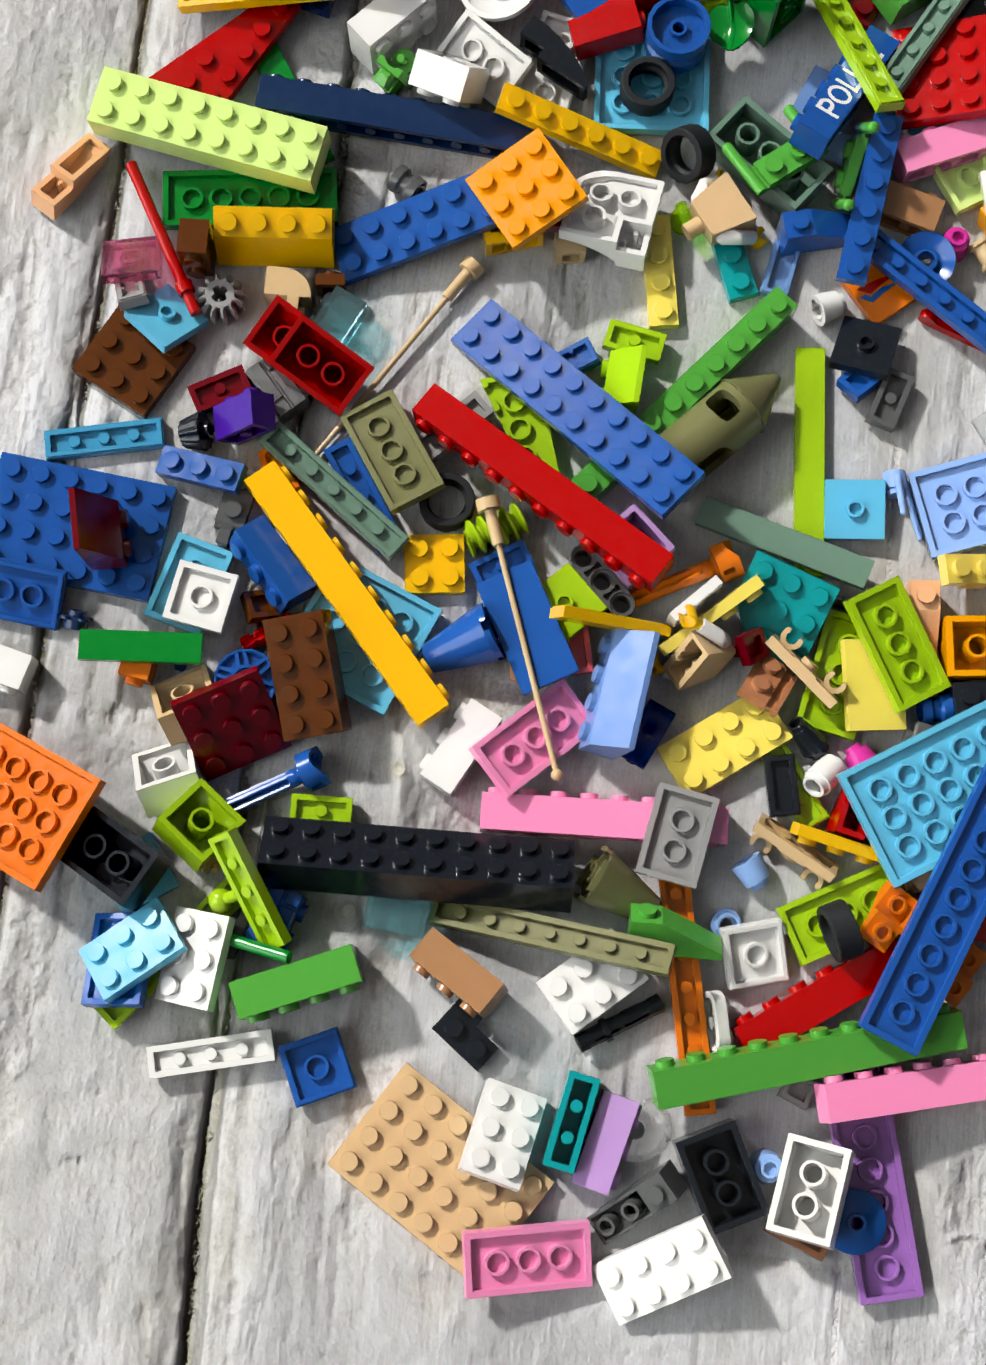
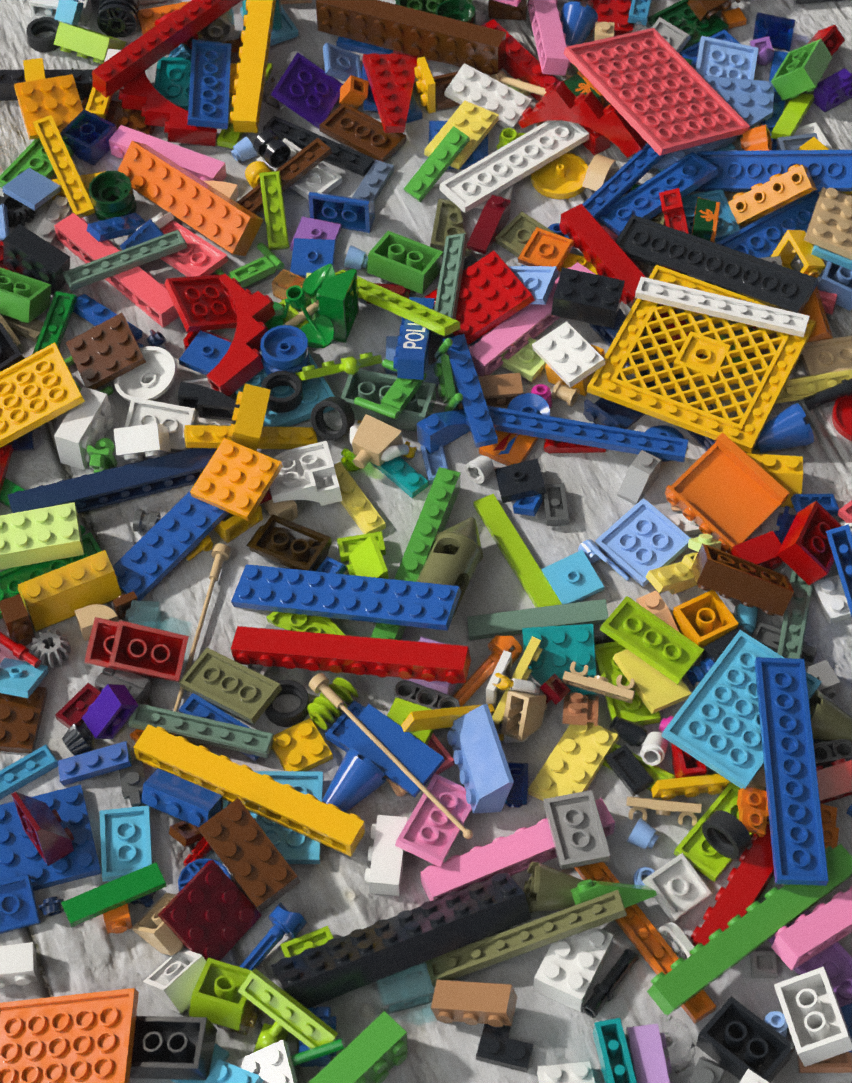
camera: 25 degrees left, 25 degrees down
(201, 597) = (141, 842): white plate -> none
(459, 249) = (205, 545): none -> yellow hand
(552, 300) = (290, 544): none -> dark brown slope
(586, 108) = (249, 416): none -> yellow brick
(742, 88) = (349, 365): none -> lime plate

